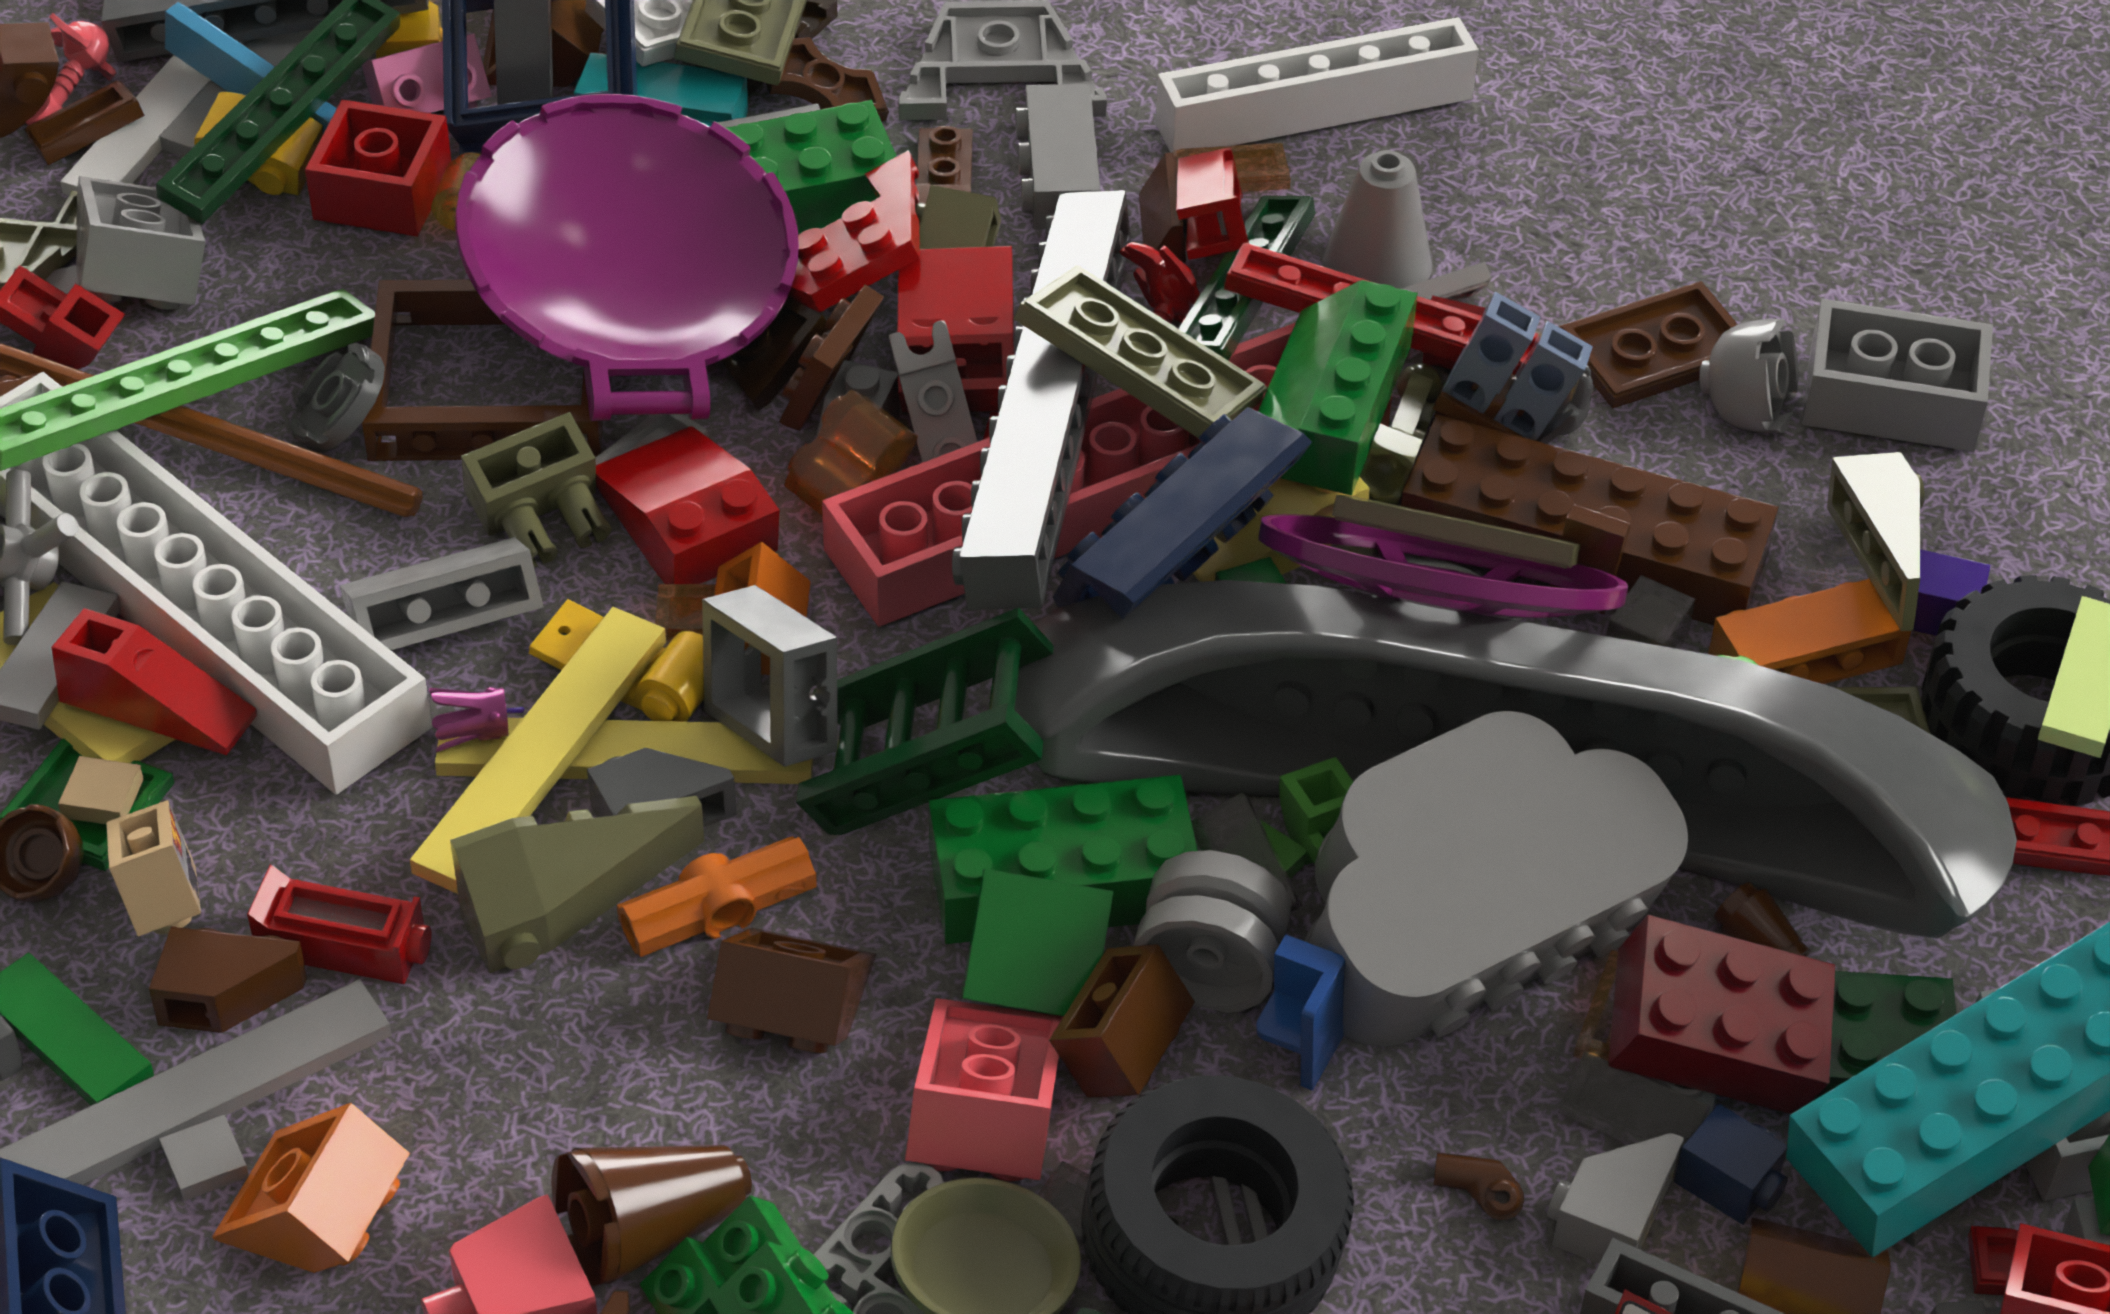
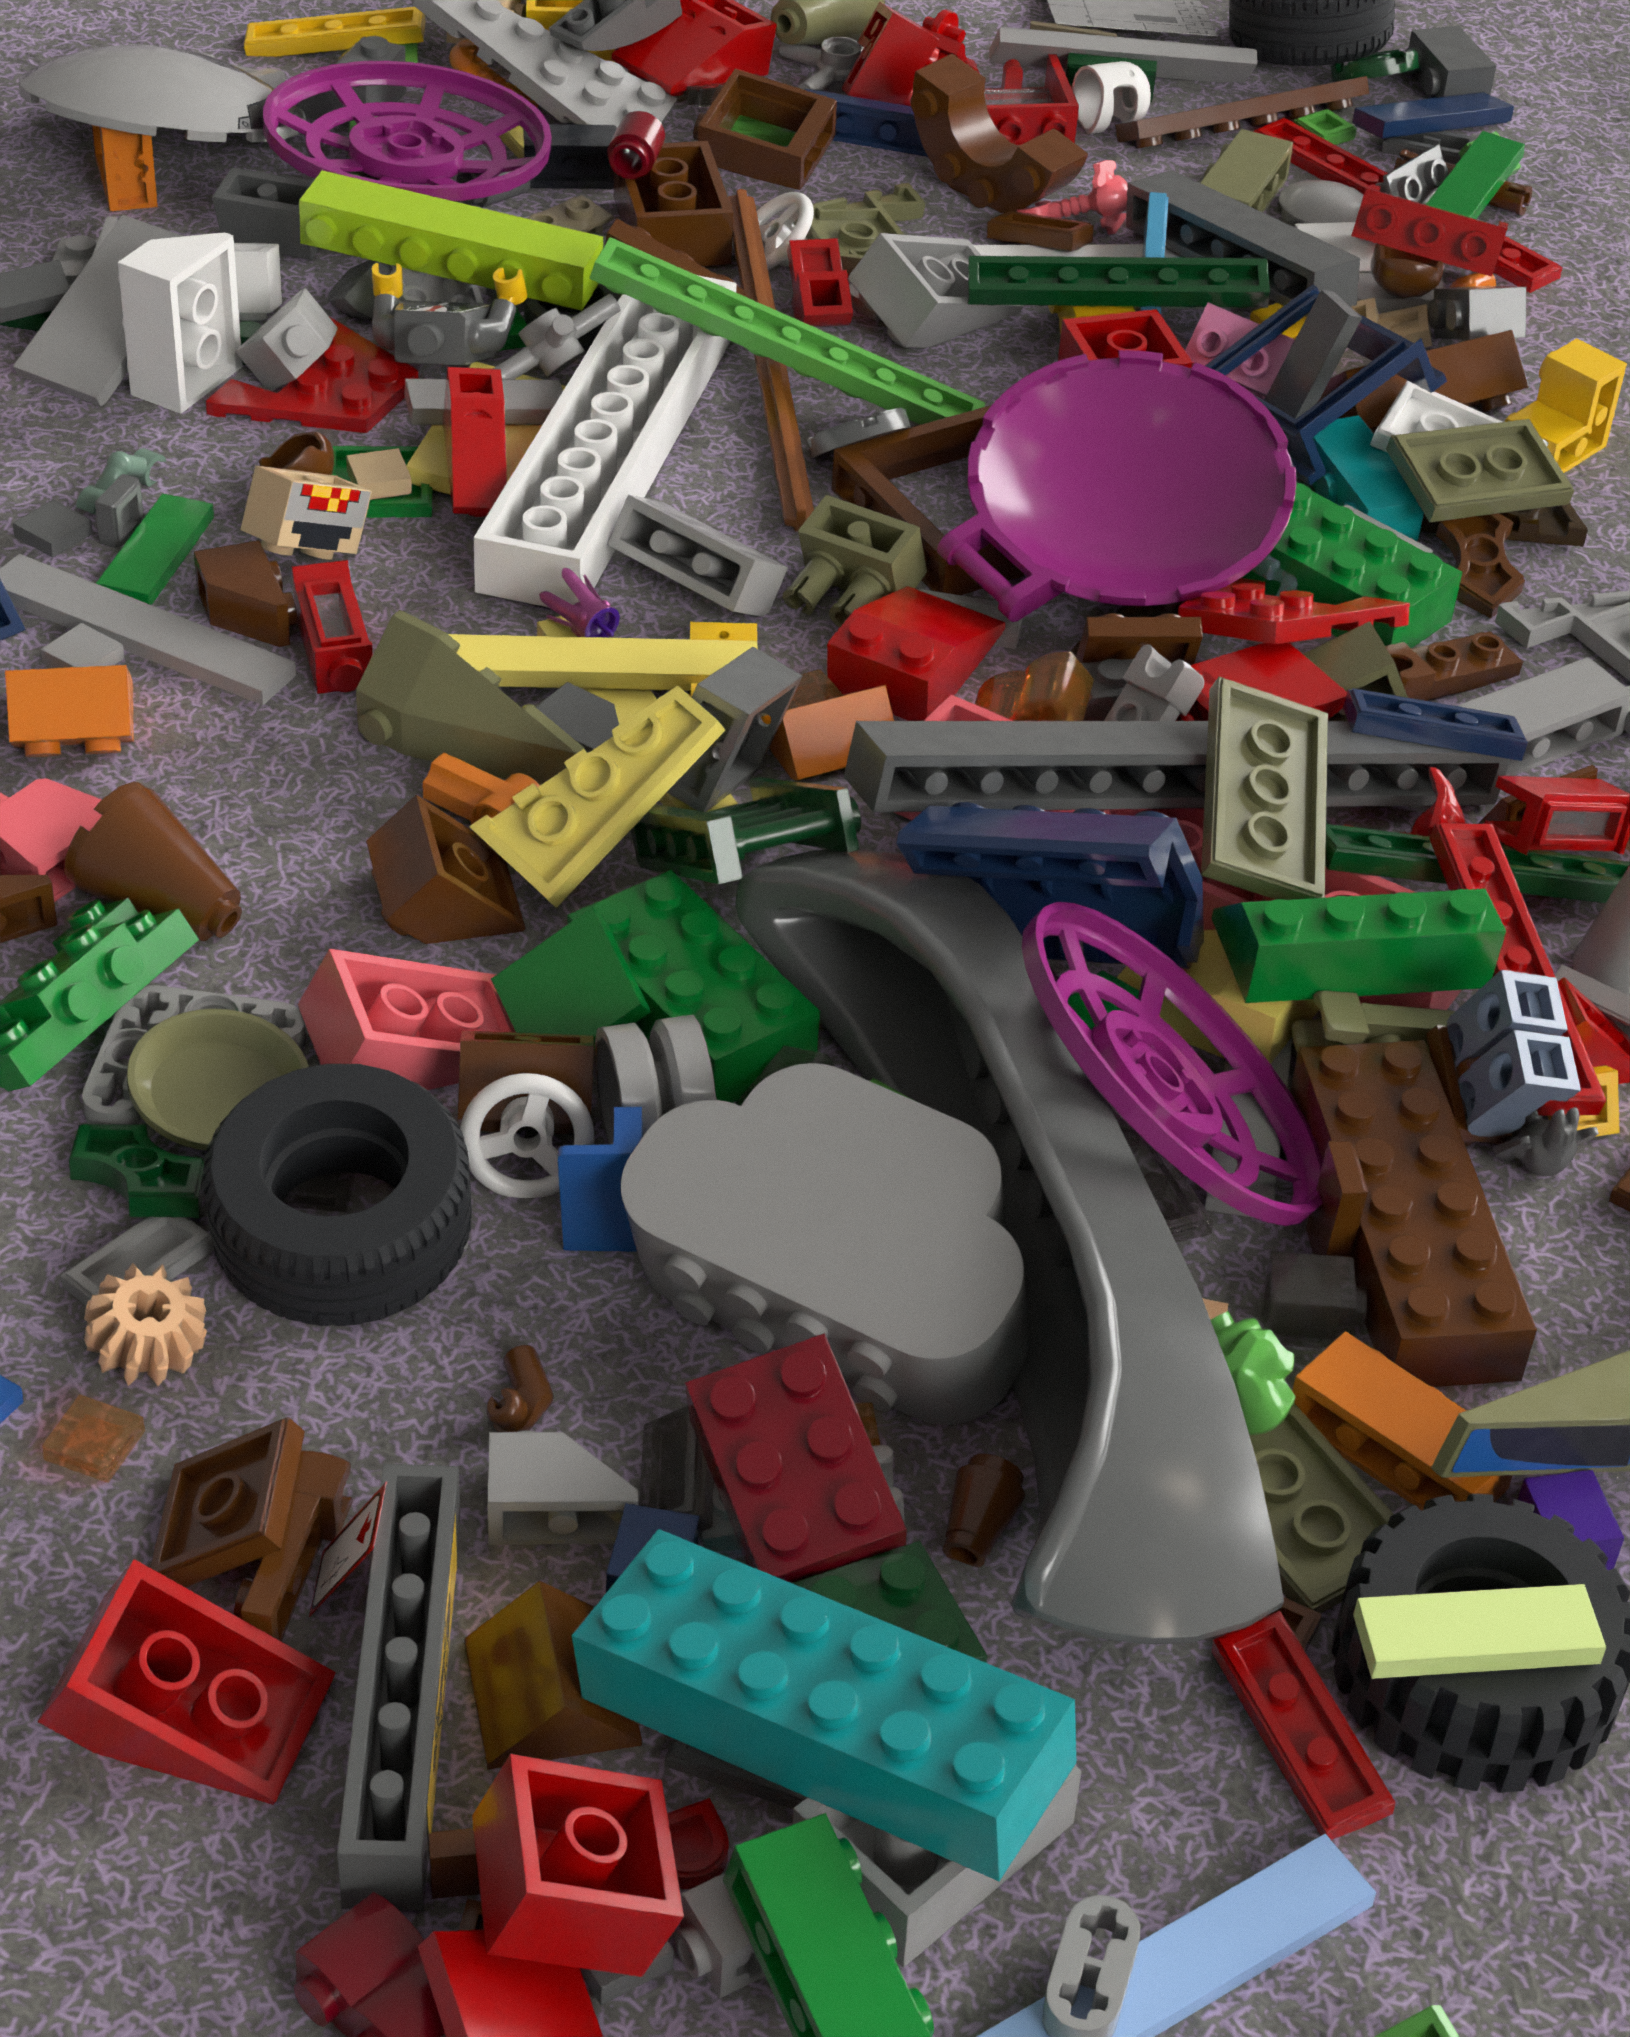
camera: 60 degrees right, 5 degrees down
(811, 815) = (584, 811): none -> light yellow wing
(1077, 216) = (1434, 724): none -> dark blue tile
(1188, 1044) = (522, 1112): none -> white piece
(1456, 531) = (1259, 1086): olive tile -> none

